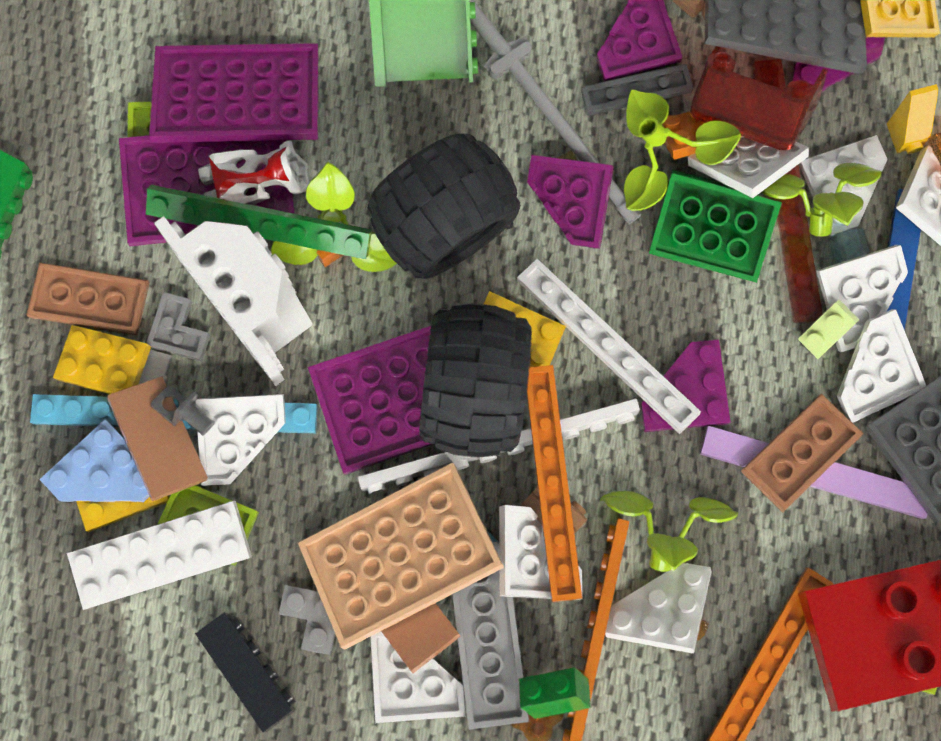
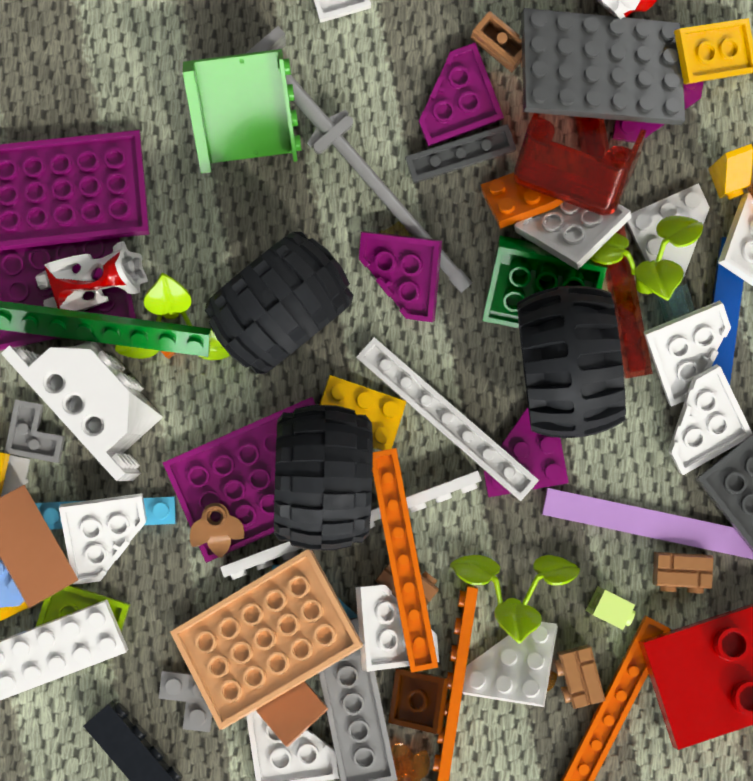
camera: 10 degrees left, 10 degrees up
(186, 411) = (50, 518): dark grey bracket -> none
(357, 443) = (216, 534): none -> medium nougat plate
(554, 693) = (418, 754): green brick -> none
(557, 636) = (418, 700): none -> reddish brown plate
(644, 119) = (469, 182): lime plant -> none
(732, 627) = (580, 677): none -> medium nougat brick
(743, 284) = (572, 361): none -> black tyre
(771, 553) = (611, 608): none -> yellowish green brick
(801, 452) = (637, 507): nougat tile -> none
(828, 329) = (657, 387): yellowish green plate -> none
(848, 523) = (682, 570): none -> medium nougat brick

